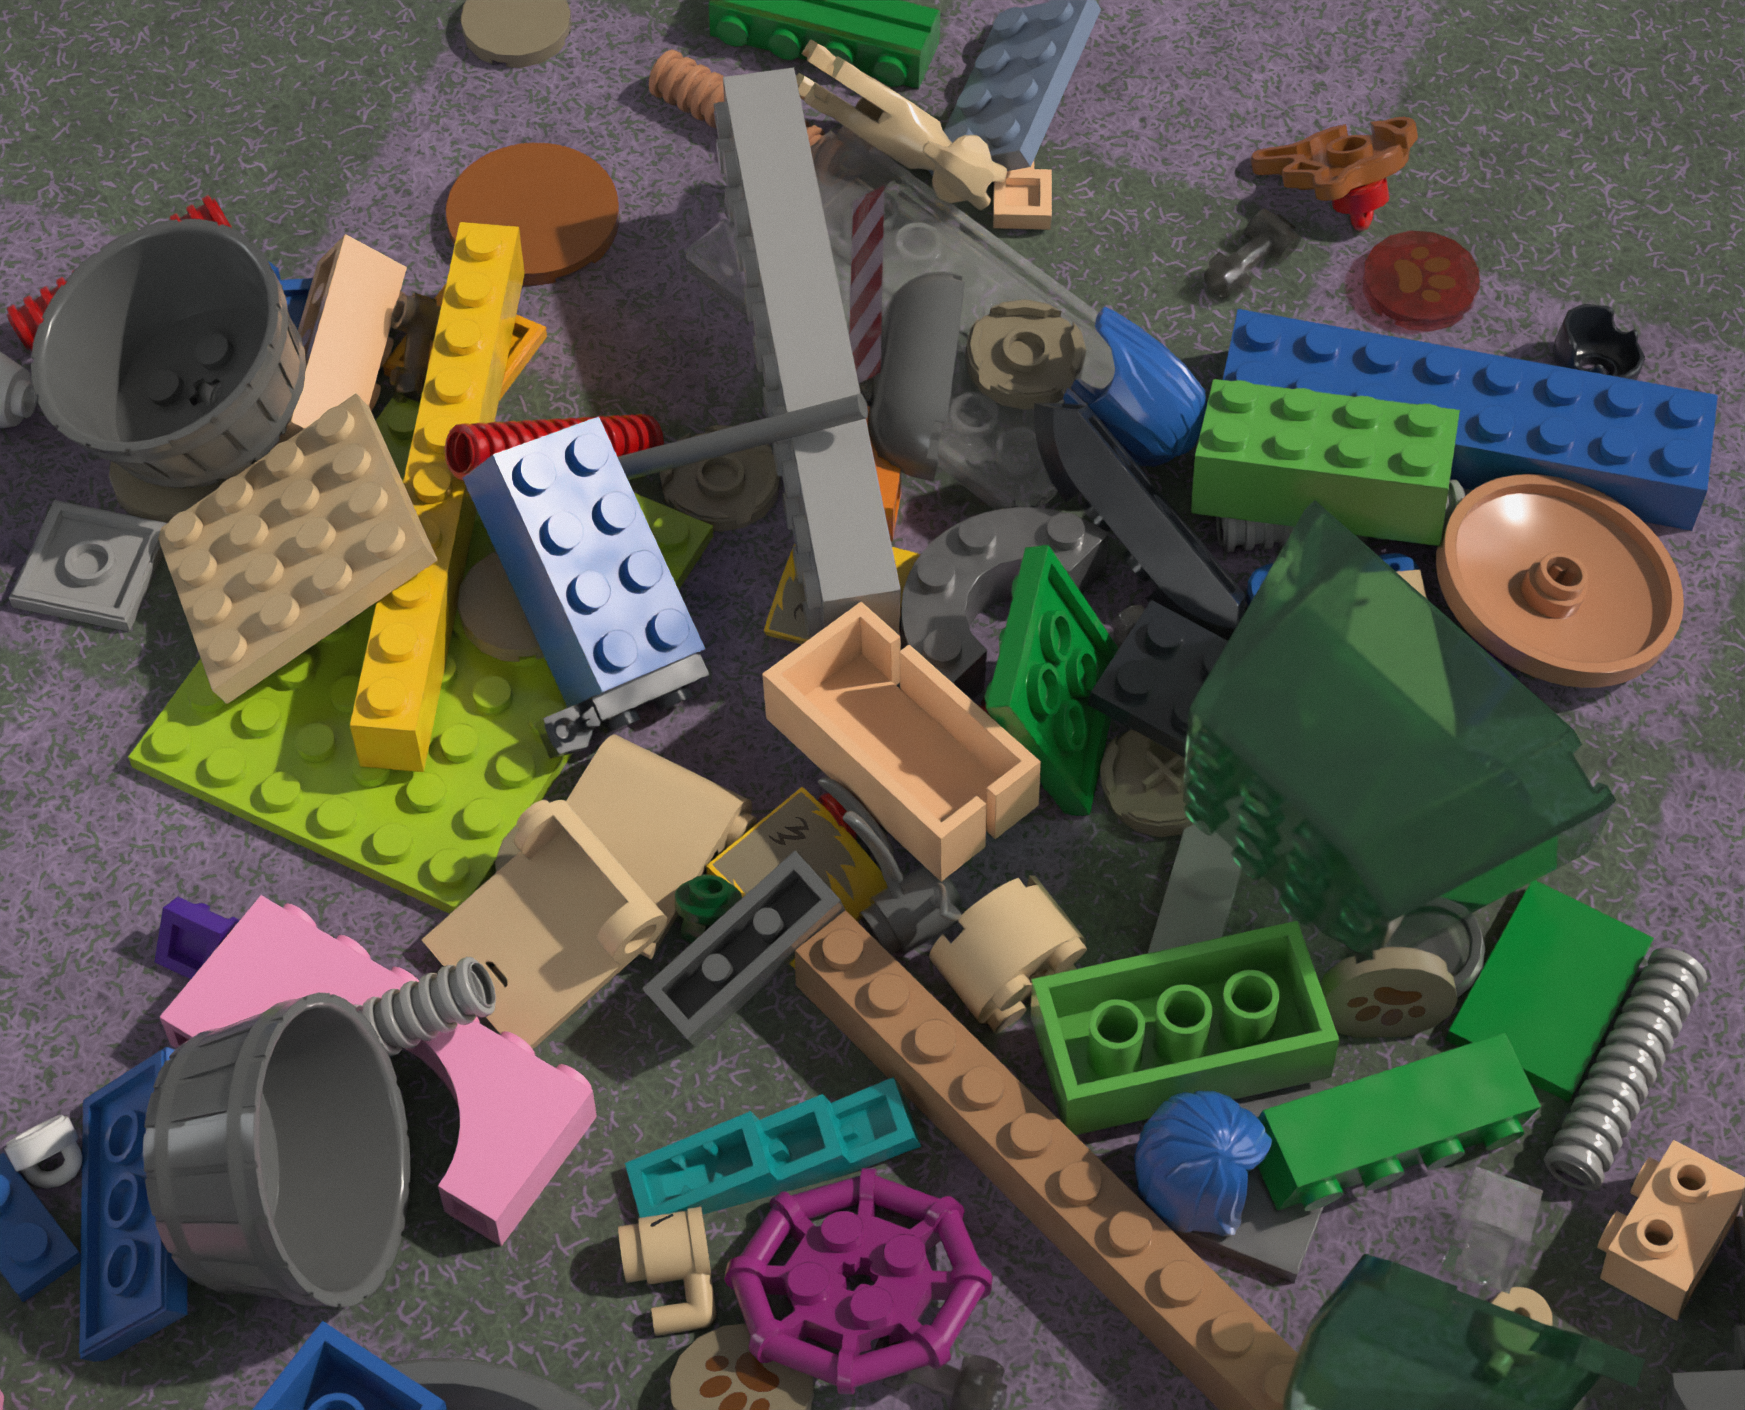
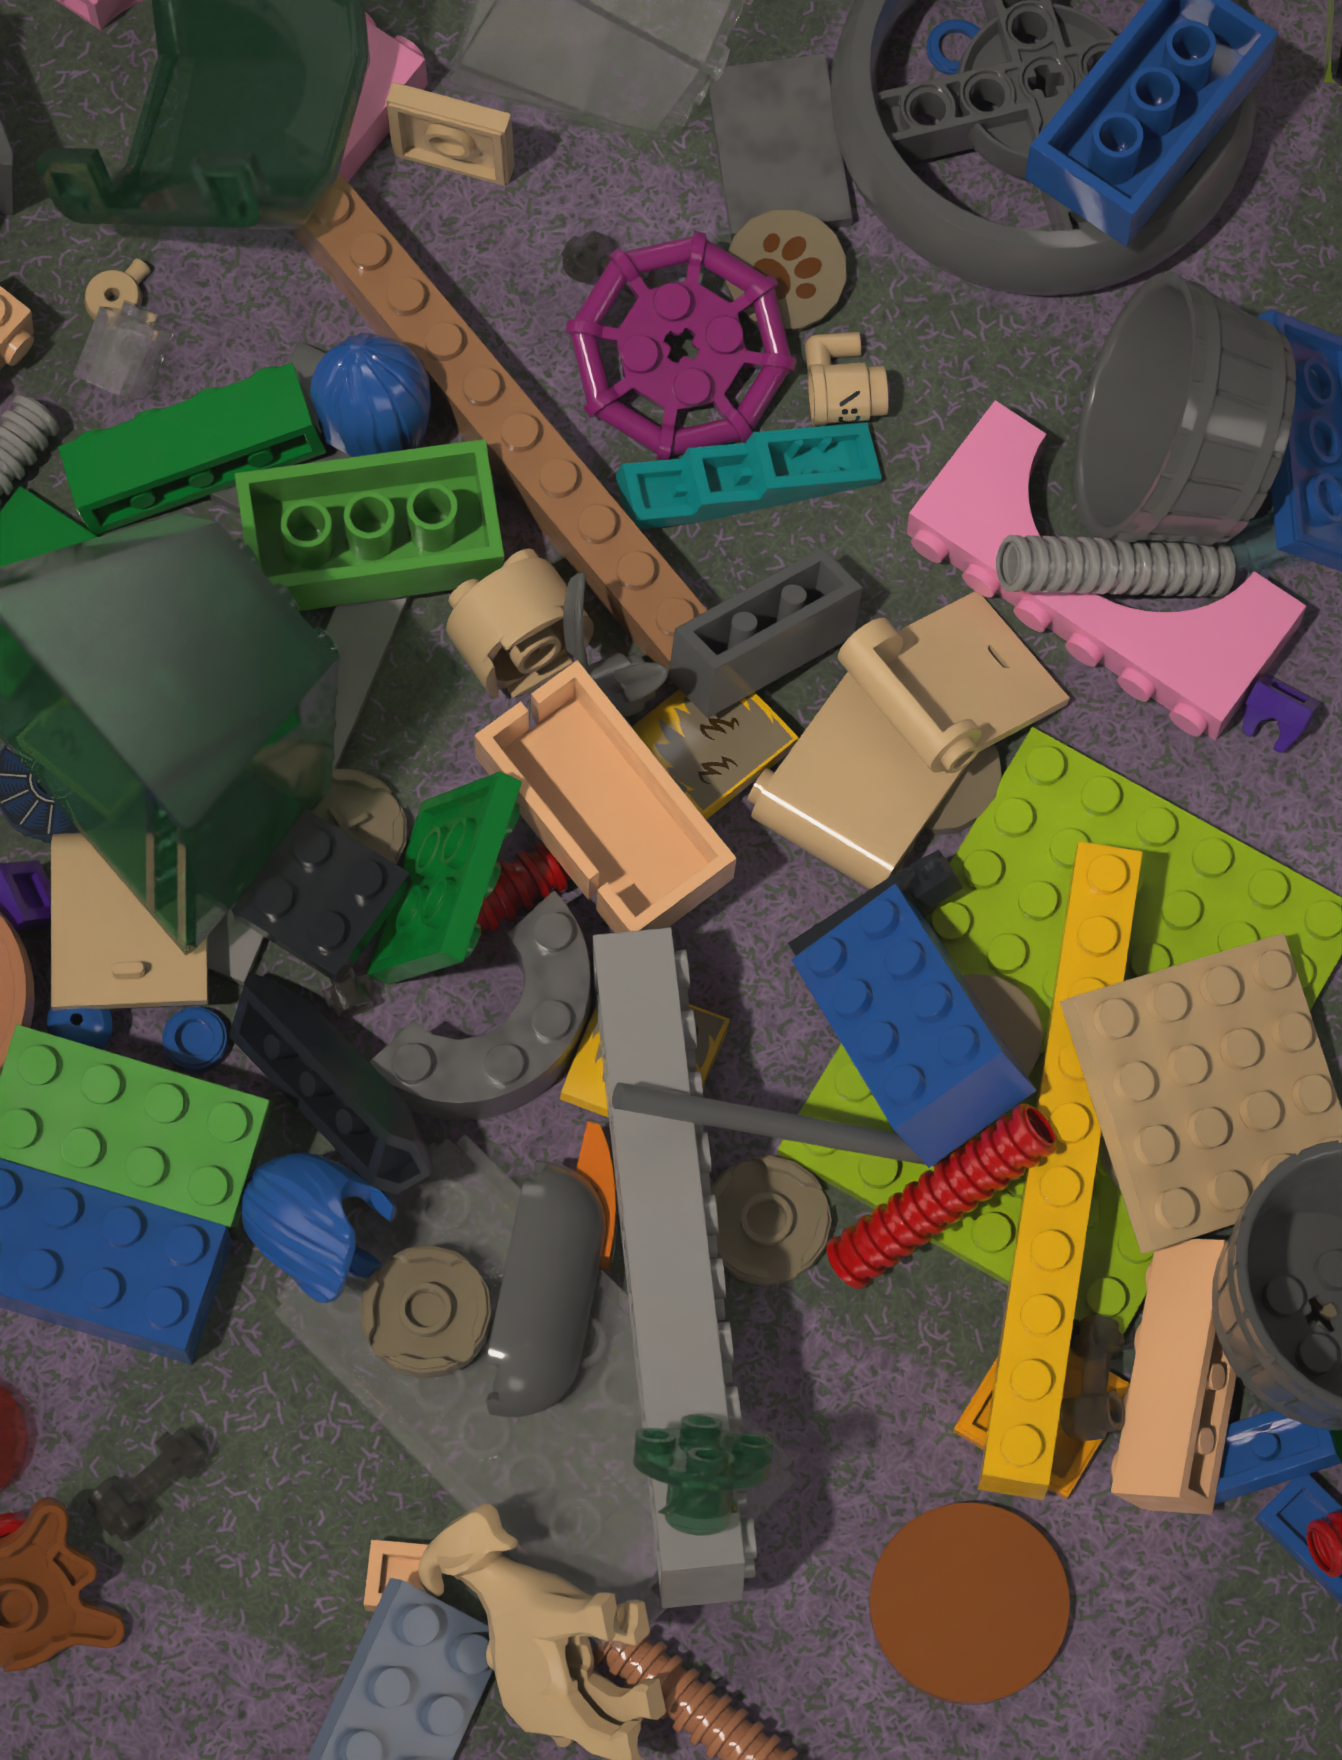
camera: 175 degrees left, 15 degrees up
(703, 903) = (798, 690): dark green plate -> none
(762, 107) = (702, 1470): none -> clear green plate
(866, 283) = (594, 1401): sticker -> none

